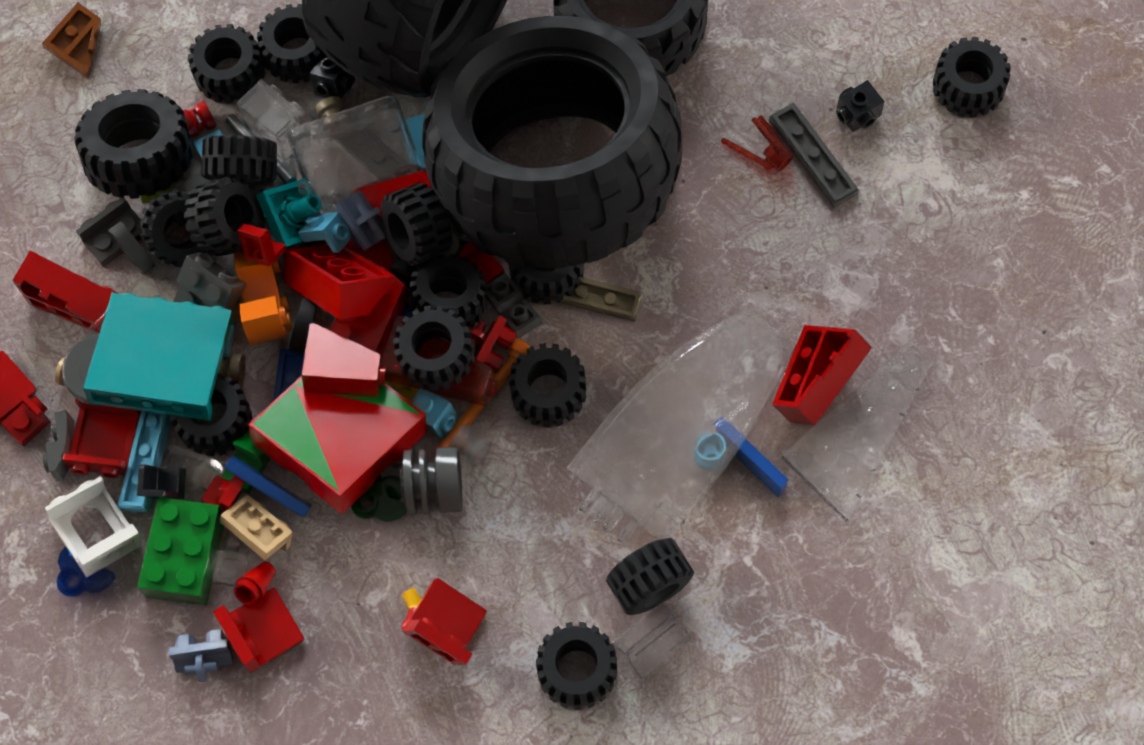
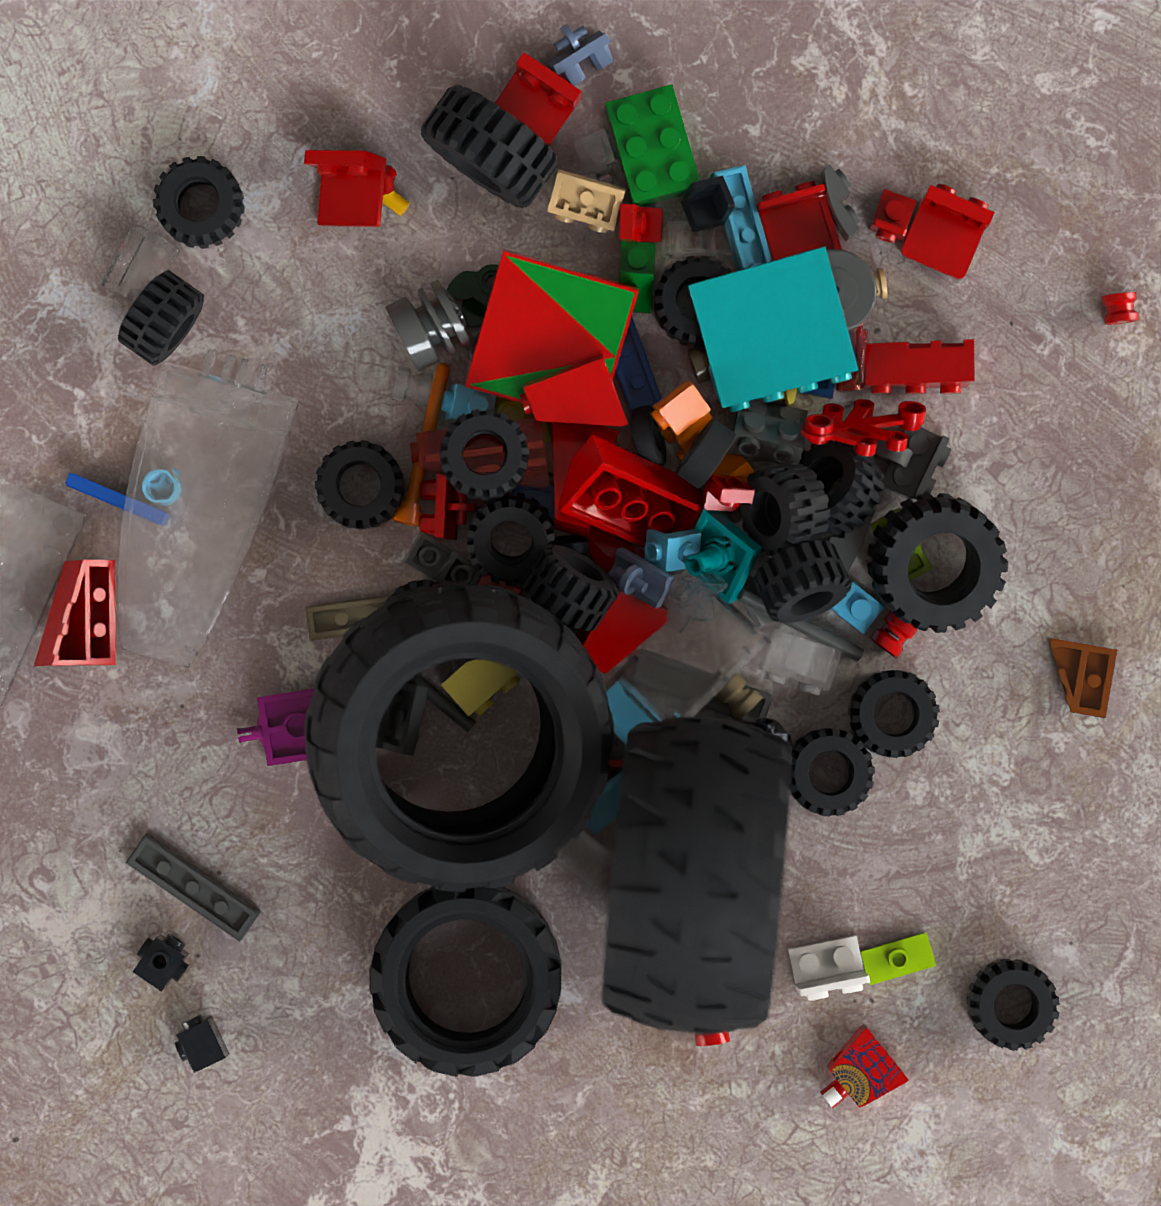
camera: 145 degrees right, 20 degrees up
(69, 569) = (743, 93): clear blue plate -> none
(93, 494) = (792, 123): white panel -> none
(162, 262) = (829, 426): none -> red plant
(254, 583) = (563, 140): red cone -> none
(255, 270) = (705, 453): none -> black tyre
(268, 486) = (596, 248): blue tile -> none
(309, 591) = (489, 146): none -> black tyre
(684, 234) = (281, 726): none -> magenta plate
(776, 154) = (231, 866): clear red plant -> none
(853, 43) = (200, 1043): none -> black brick
(974, 57) = (22, 1060): black tyre -> none

